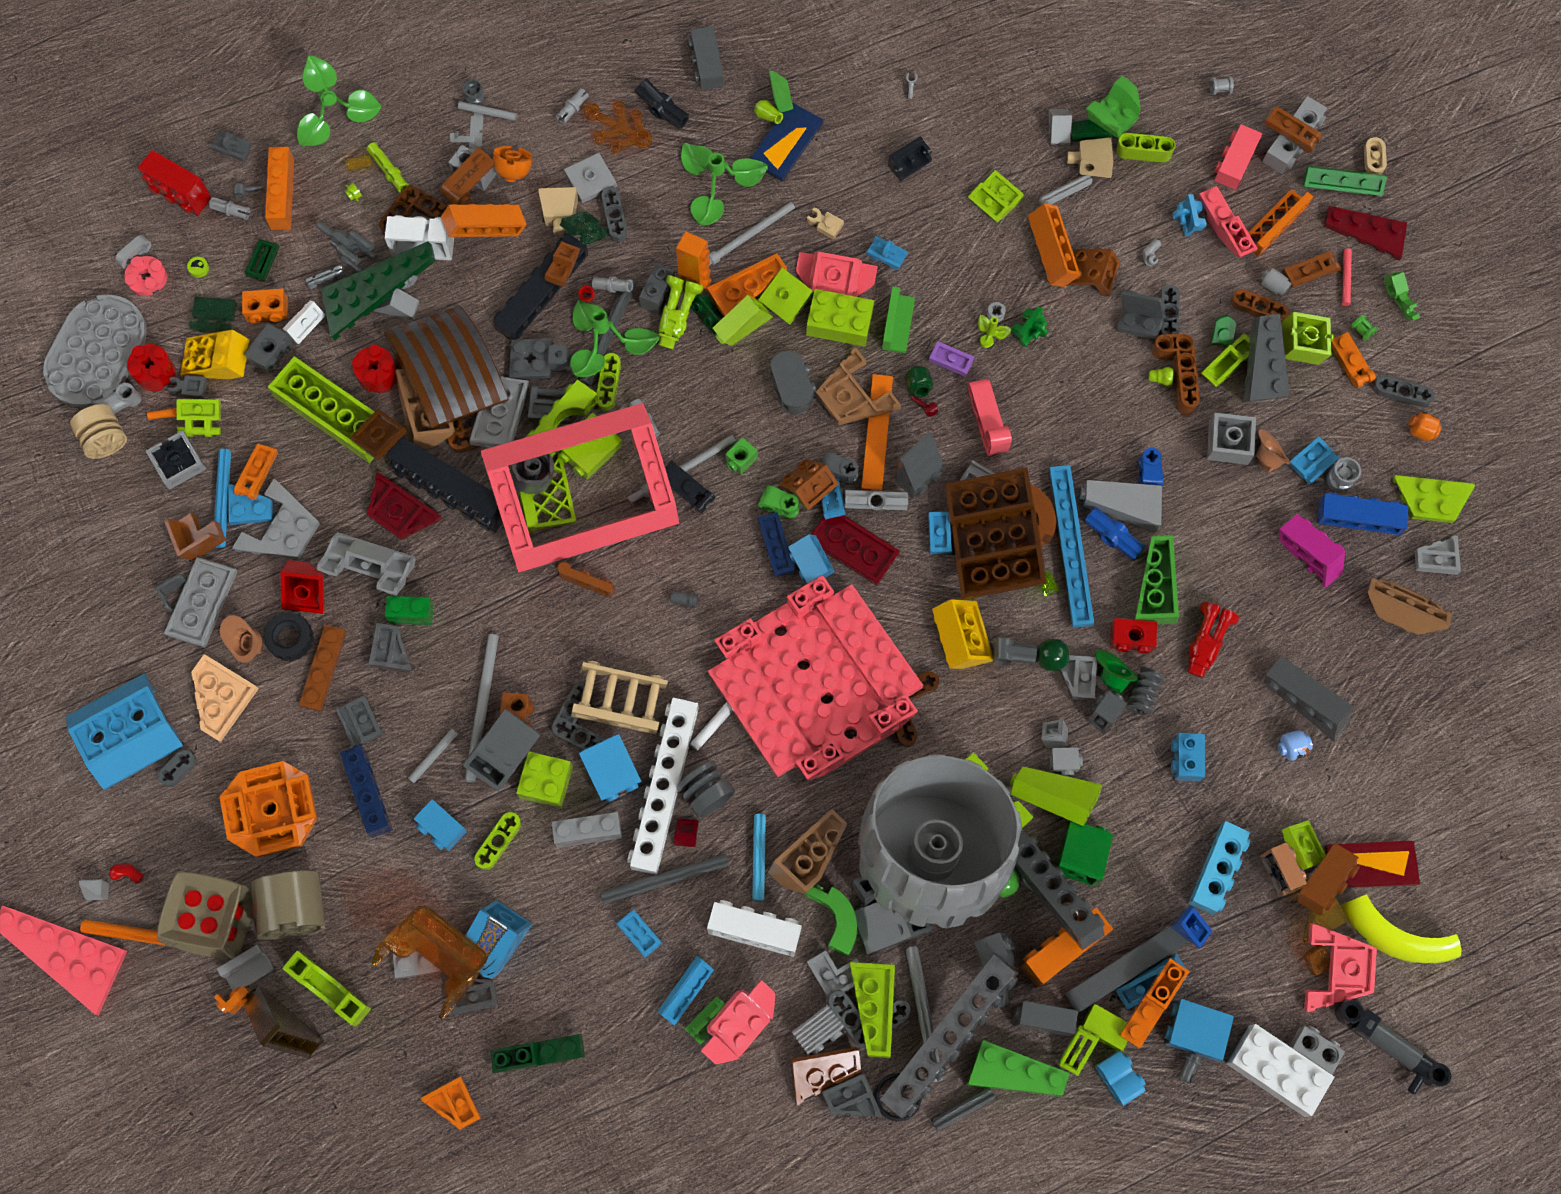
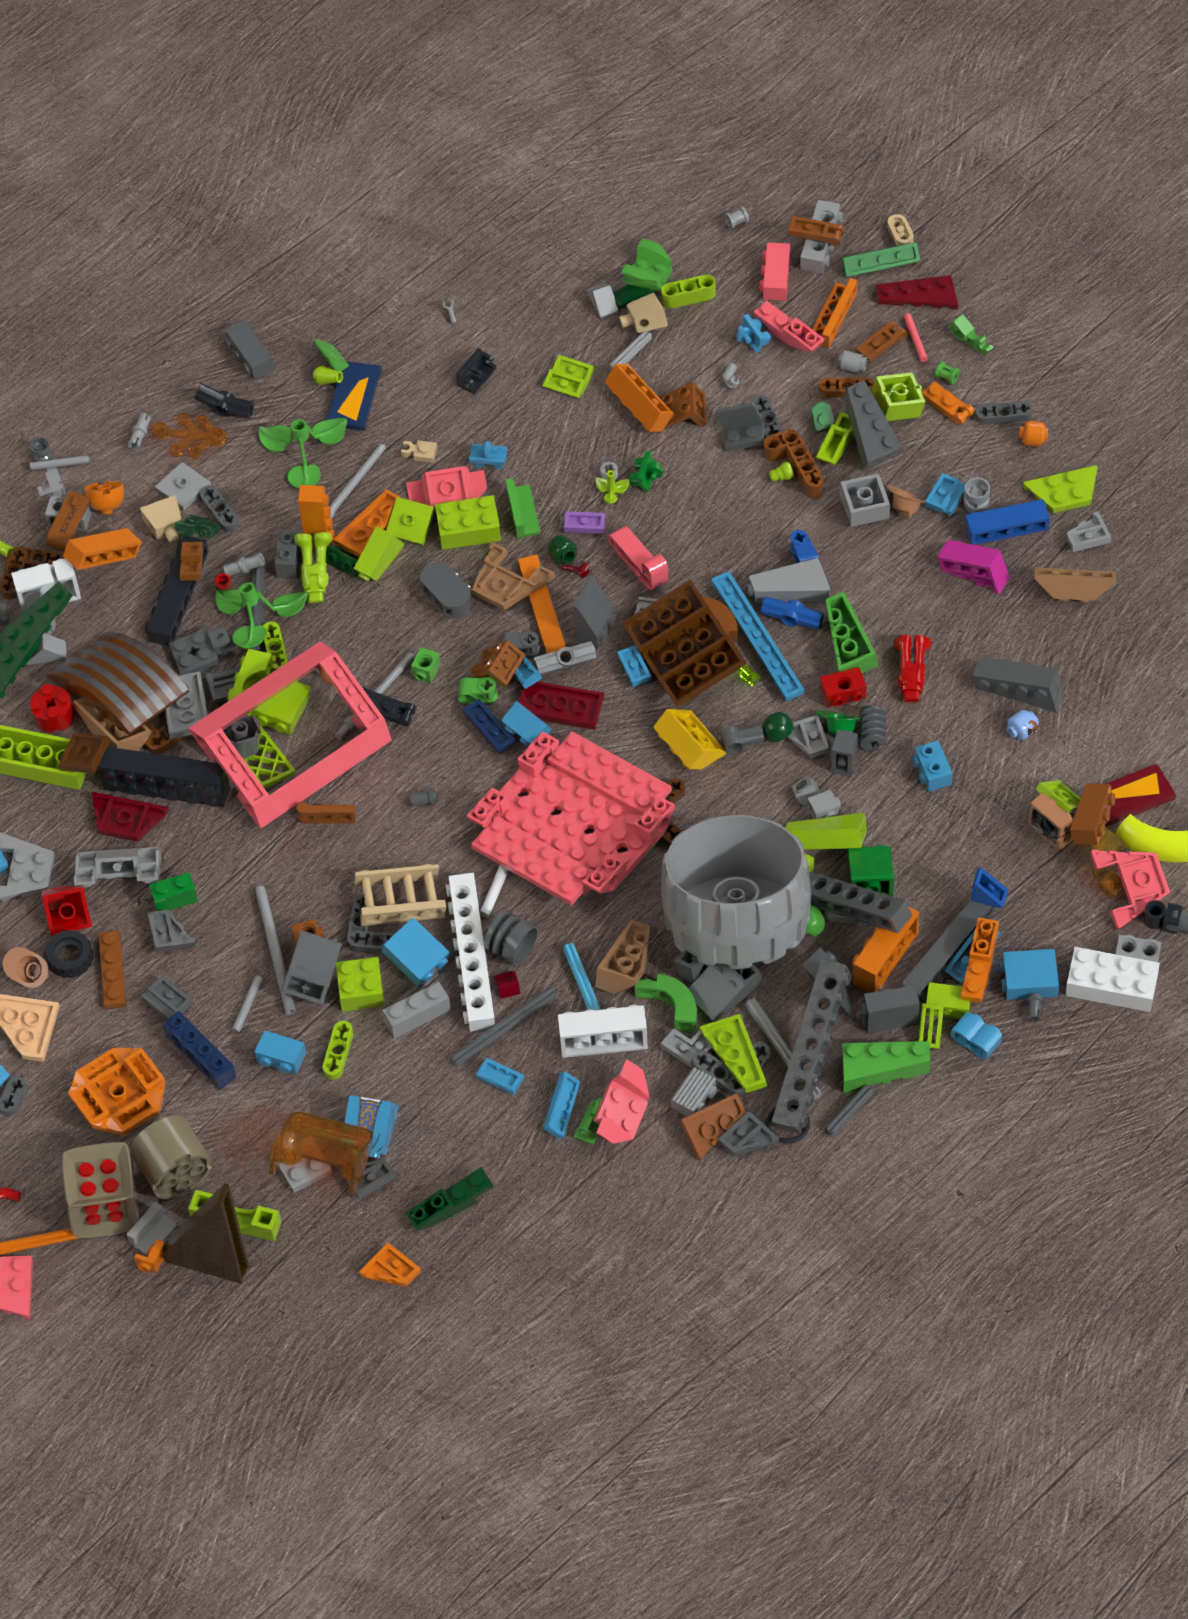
camera: 15 degrees left, 15 degrees down
(1201, 896) = (997, 814): medium azure brick -> none

